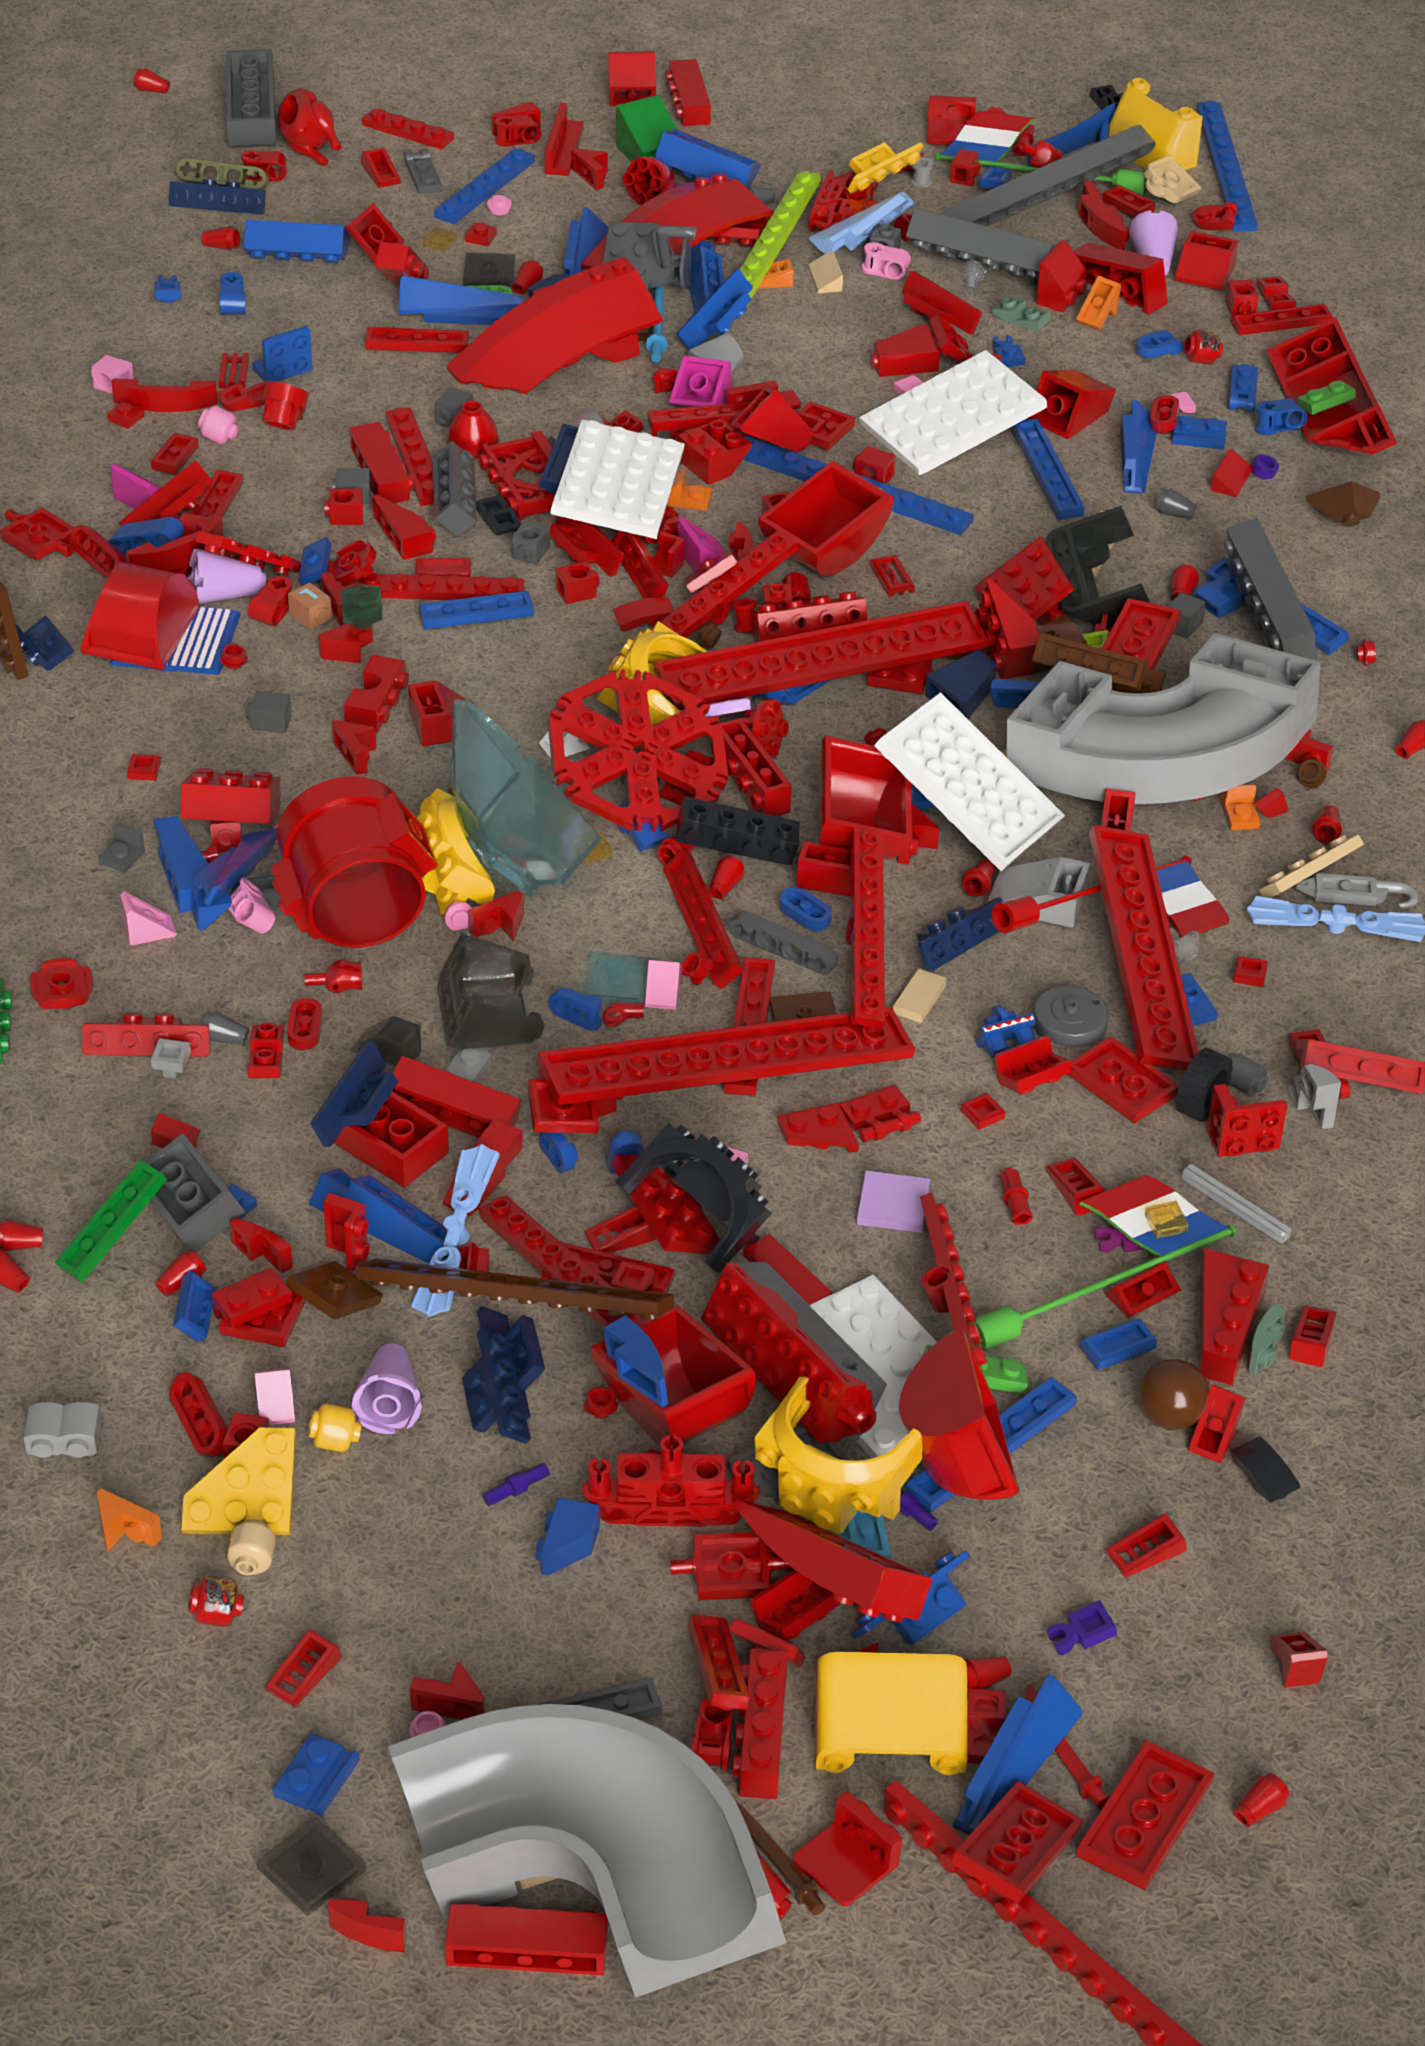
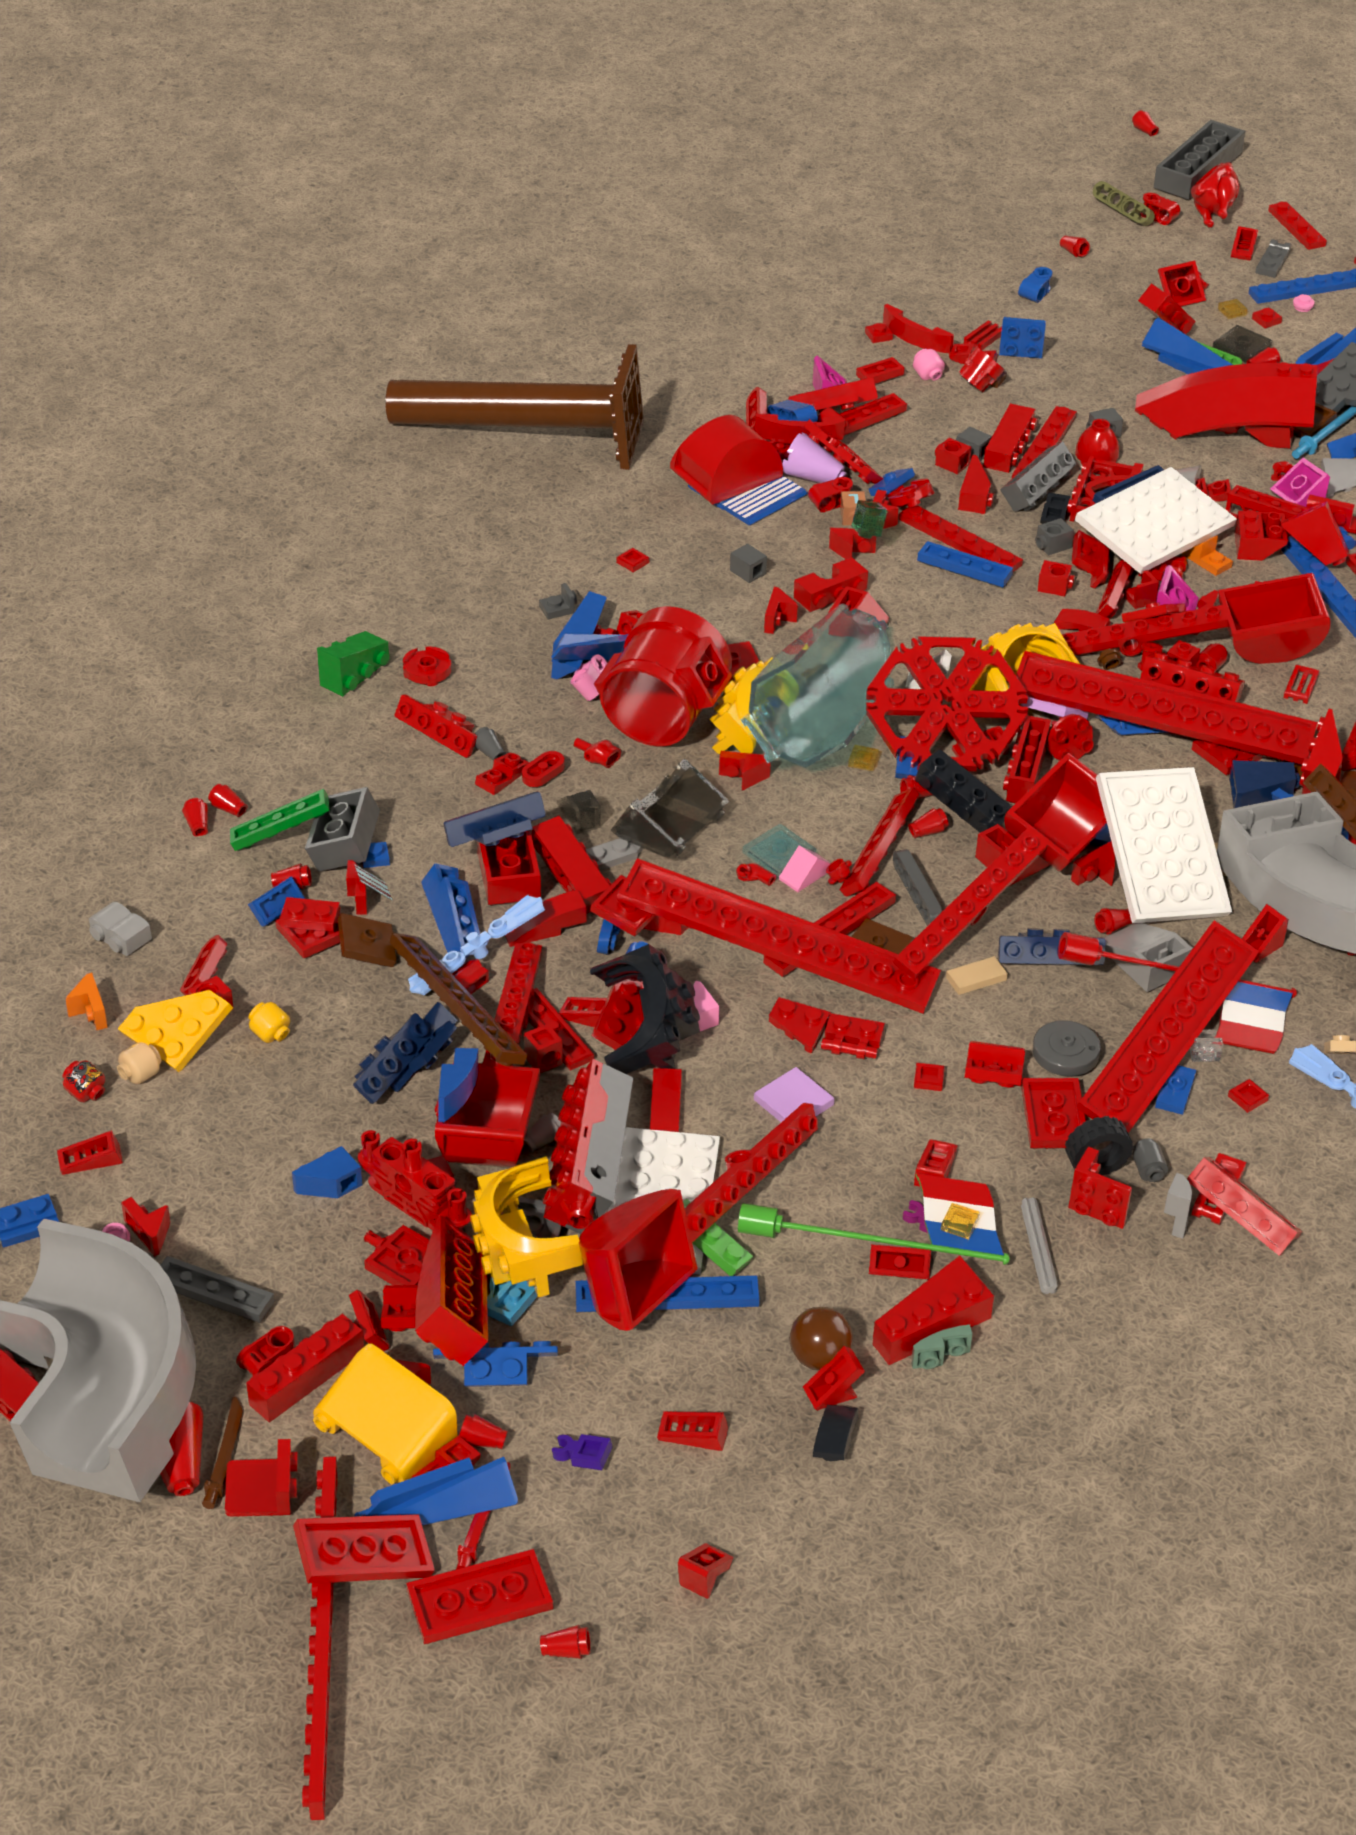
camera: 40 degrees right, 0 degrees up
(37, 533) = (732, 382): red plate -> none
(44, 644) = (654, 453): dark blue bracket -> none
(108, 369) = (897, 298): bright pink brick -> none
(144, 921) = (517, 652): bright pink slope -> none
(167, 289) = (999, 264): blue plate -> none
(167, 1129) = (386, 792): red piece -> none
(170, 1057) = (435, 743): light grey tile -> none
(215, 197) = (1103, 216): dark blue bracket -> none
(230, 796) = (642, 592): red brick -> none
(233, 656) = (767, 517): red plate -> none
(275, 1395) = (262, 981): bright pink slope -> none
(296, 240) = (1119, 265): blue slope -> none
(346, 1228) = (409, 906): red bracket -> none
(388, 1392) = (323, 1017): lavender cone -> none
(416, 339) = (1131, 367): red plate -> none
(444, 566) = (978, 526): red tile -> none
(457, 915) = (714, 750): bright pink plate -> none
(516, 1484) = (338, 1125): dark purple bar -> none
(570, 1004) = (725, 853): blue plate -> none
(718, 1662) = (314, 1309): red plate -> none
(805, 909) = (960, 872): blue plate -> none
(911, 1507) = (566, 1296): dark purple bar -> none
(1004, 1027) = (1005, 1028): blue hips -> none
(1016, 1196) = (881, 1145): red axle -> none
(1118, 1344) = (835, 1285): blue plate -> none
(1312, 1339) = (975, 1380): red slope -> none

